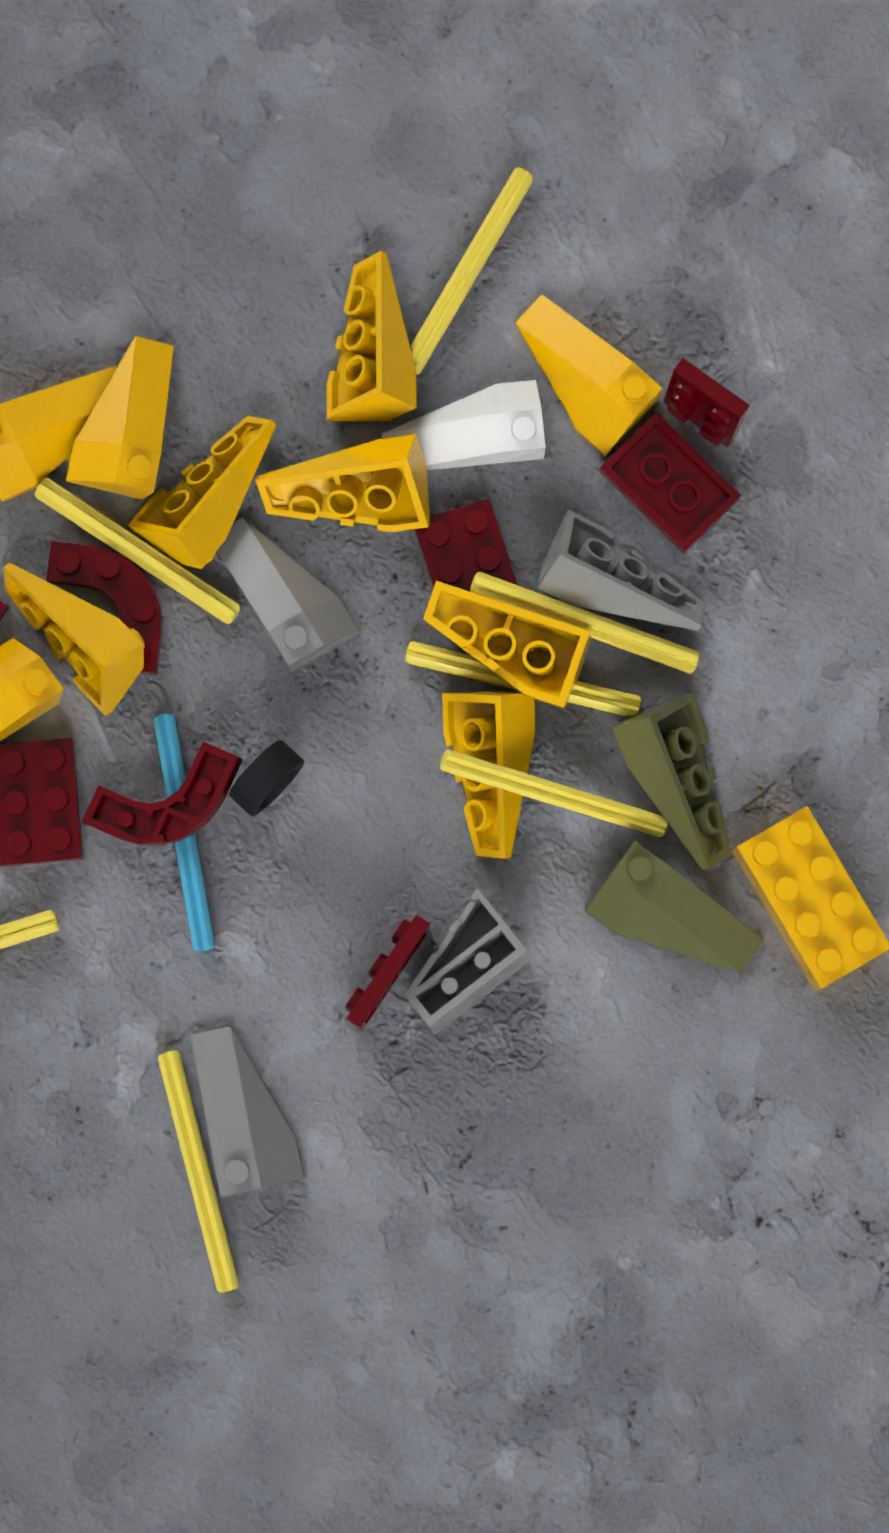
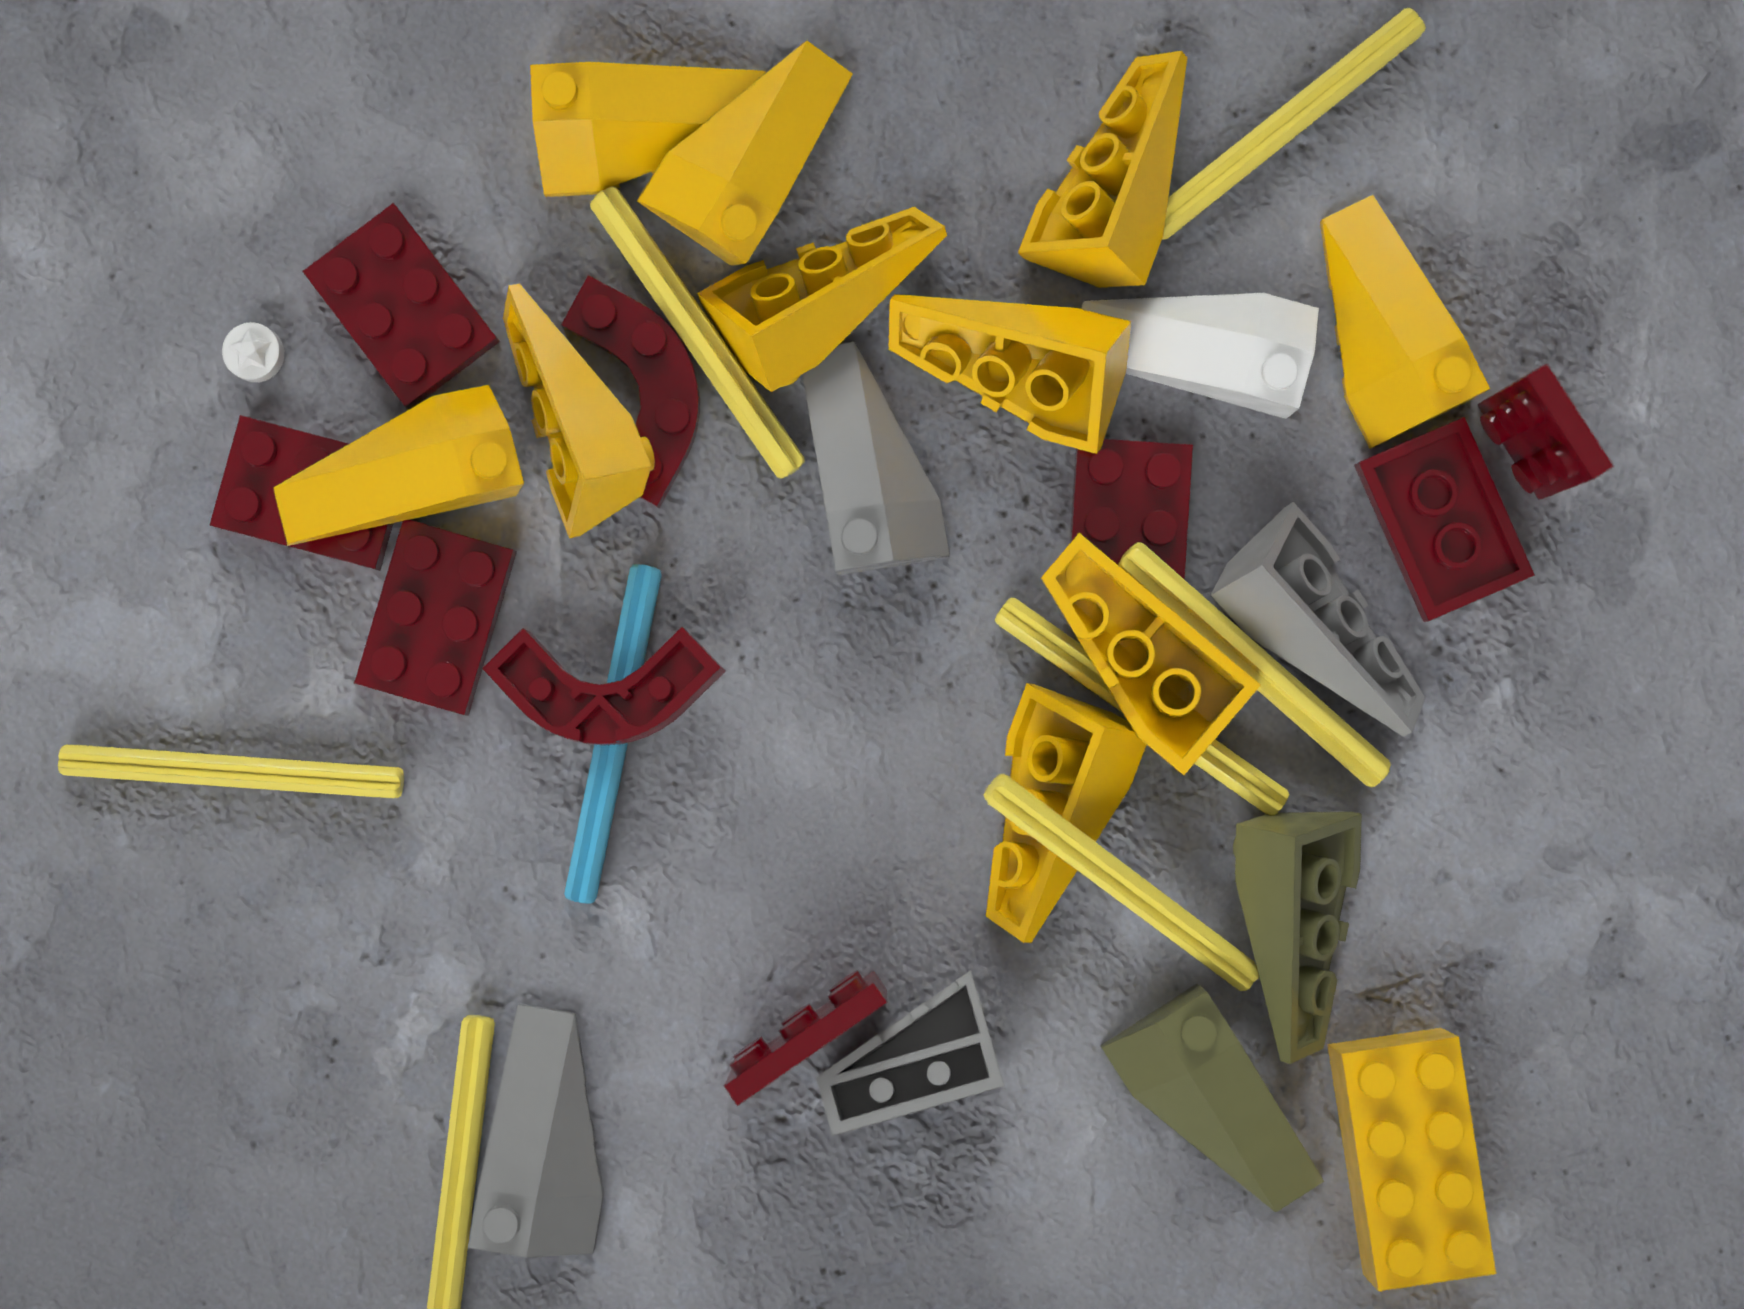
camera: 30 degrees right, 5 degrees up
(266, 777) = (747, 708): black tyre -> none

